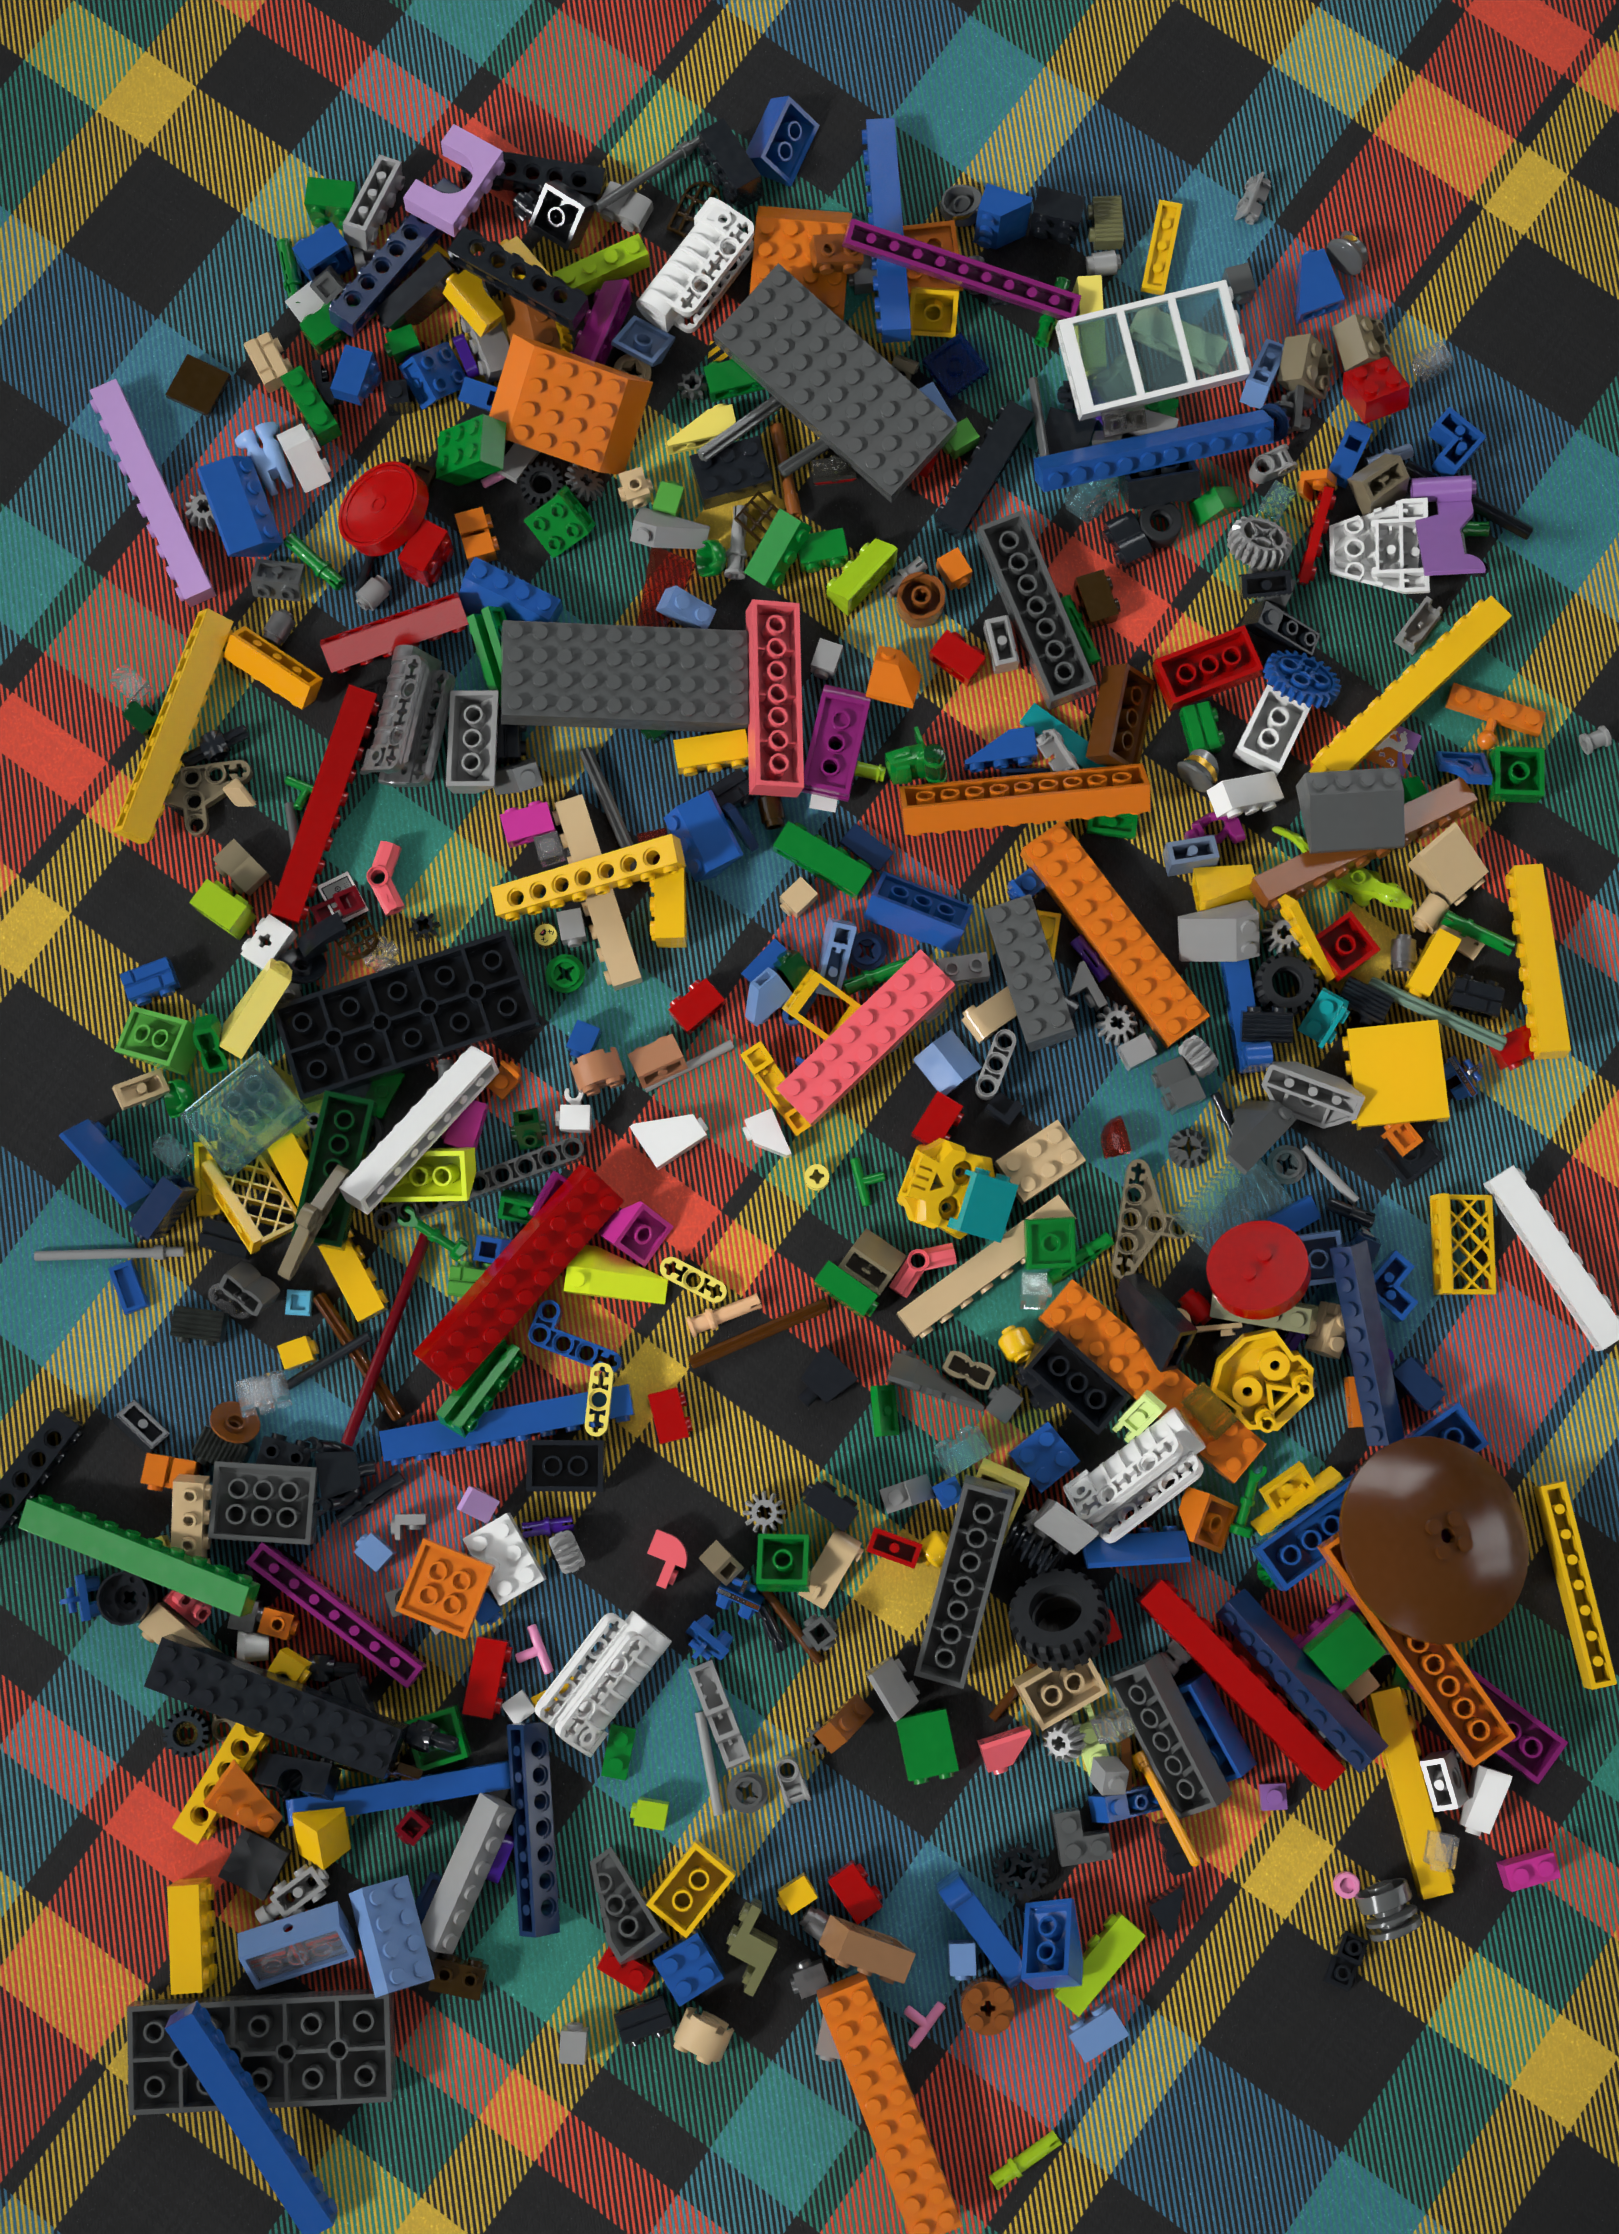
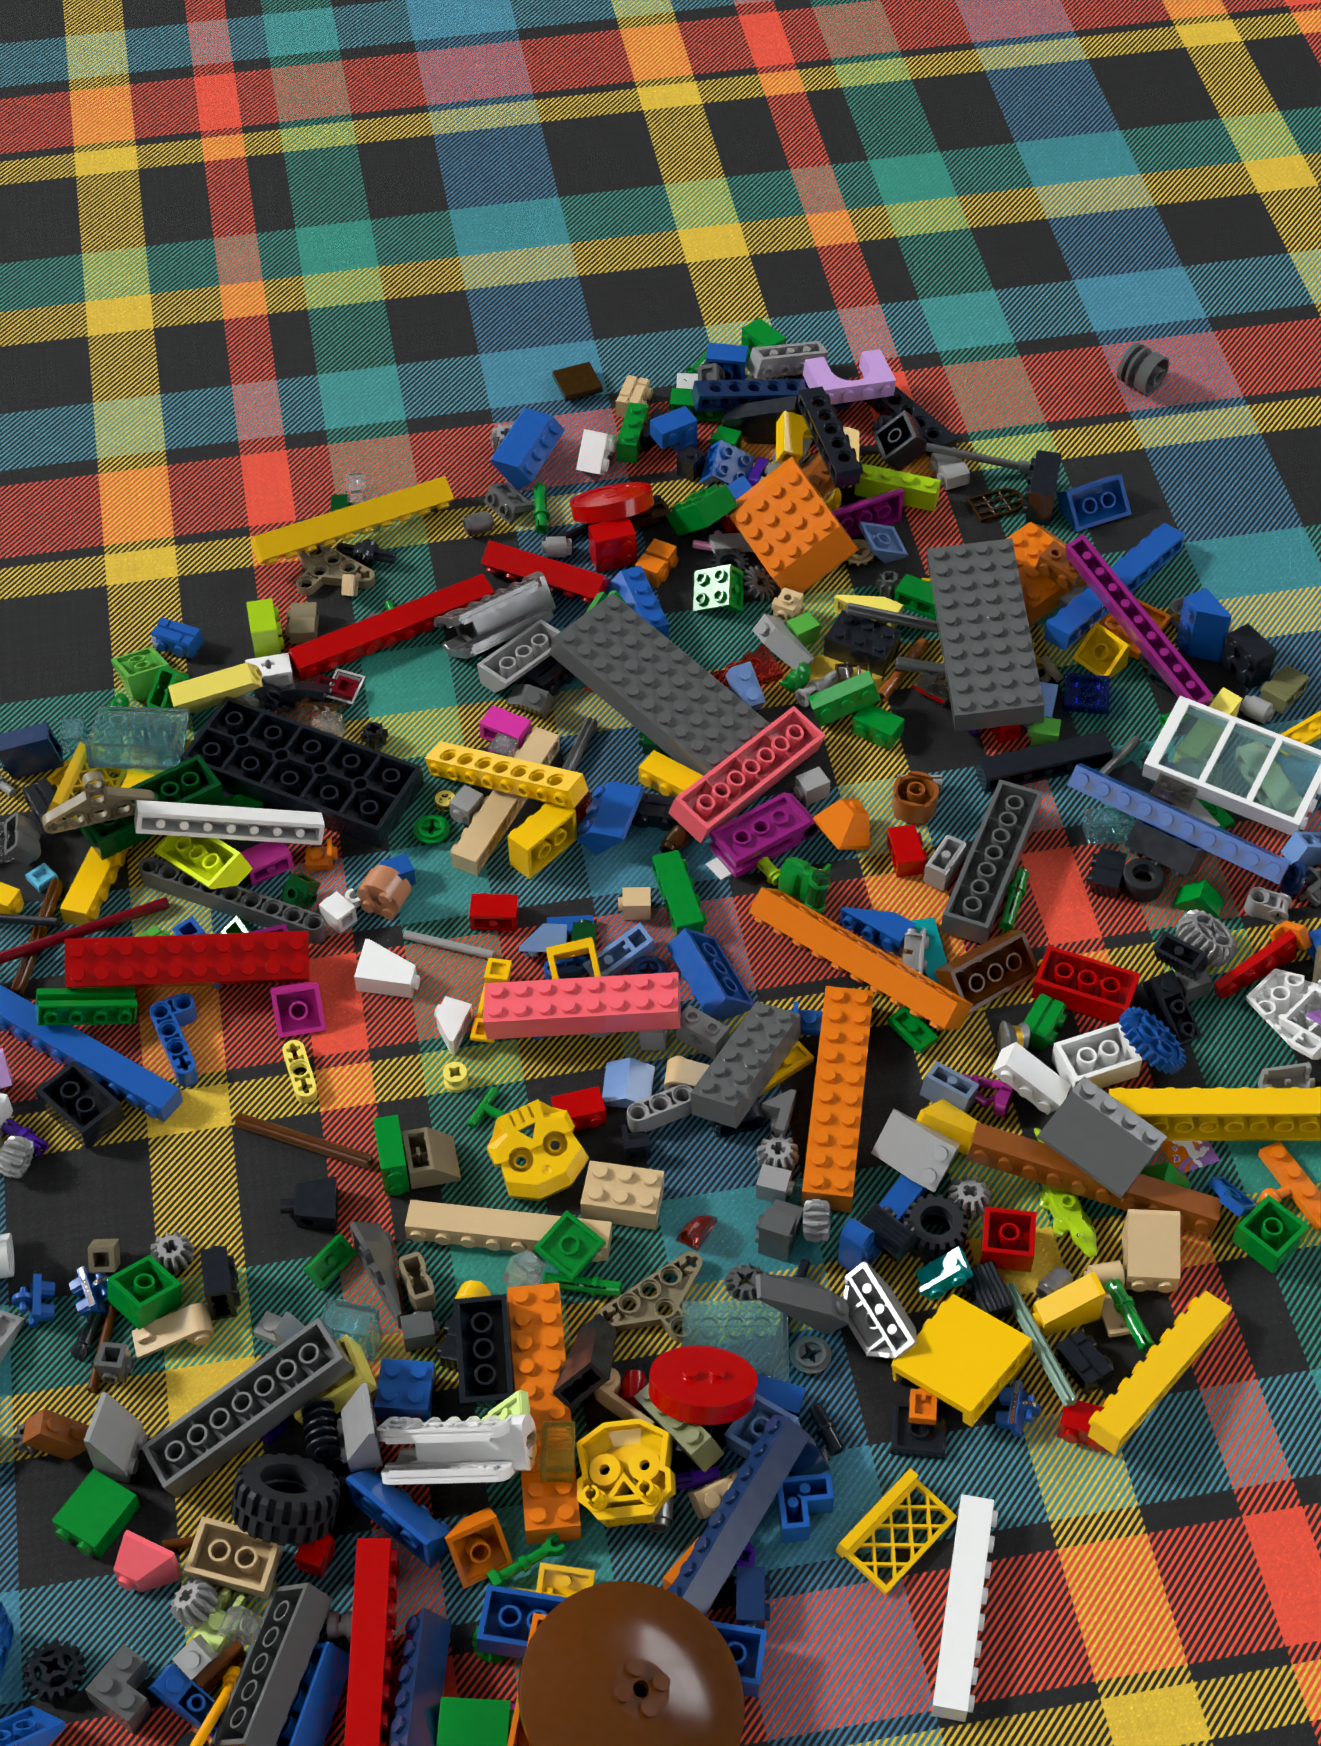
camera: 45 degrees right, 30 degrees down
(109, 1164) = (29, 697): blue slope -> none
(141, 1089) = (99, 684): tan slope -> none
(152, 492) = (485, 412): lavender brick -> none
(267, 460) = (573, 435): light blue piece -> none
(272, 667) = (449, 537): light orange brick -> none
(385, 864) = (379, 691): coral piece -> none
(433, 1234) = (167, 899): green piece -> none
(607, 1381) = (147, 1087): light yellow beam -> none
(610, 1276) = (247, 1021): neon yellow wedge -> none
(657, 1061) = (430, 920): nougat brick -> none
(669, 1415) = (183, 1136): red brick -> none
(670, 1550) = (80, 1225): coral brick -> none
(699, 268) = (959, 522): white piece -> none
(712, 1318) = (283, 1103): light nougat pin -> none
(740, 826) = (642, 829): dark blue tile -> none
(861, 575) = (888, 758): lime slope -> none
(866, 847) = (718, 913): dark blue tile -> none
(894, 1547) = (228, 1349): red brick -> none
(909, 1275) = (475, 1193): coral piece -> none
(954, 569) = (960, 800): orange brick -> none
(985, 1205) = (547, 1175): teal panel -> none
(1080, 945) = (804, 1100): dark purple pin -> none
(1097, 599) = (1046, 889): dark brown brick -> none
(1277, 500) = (1249, 927): clear light blue brick -> none
(1304, 935) = (977, 1211): yellow plate -> none
(1341, 1186) = (838, 1391): light grey bar -> none

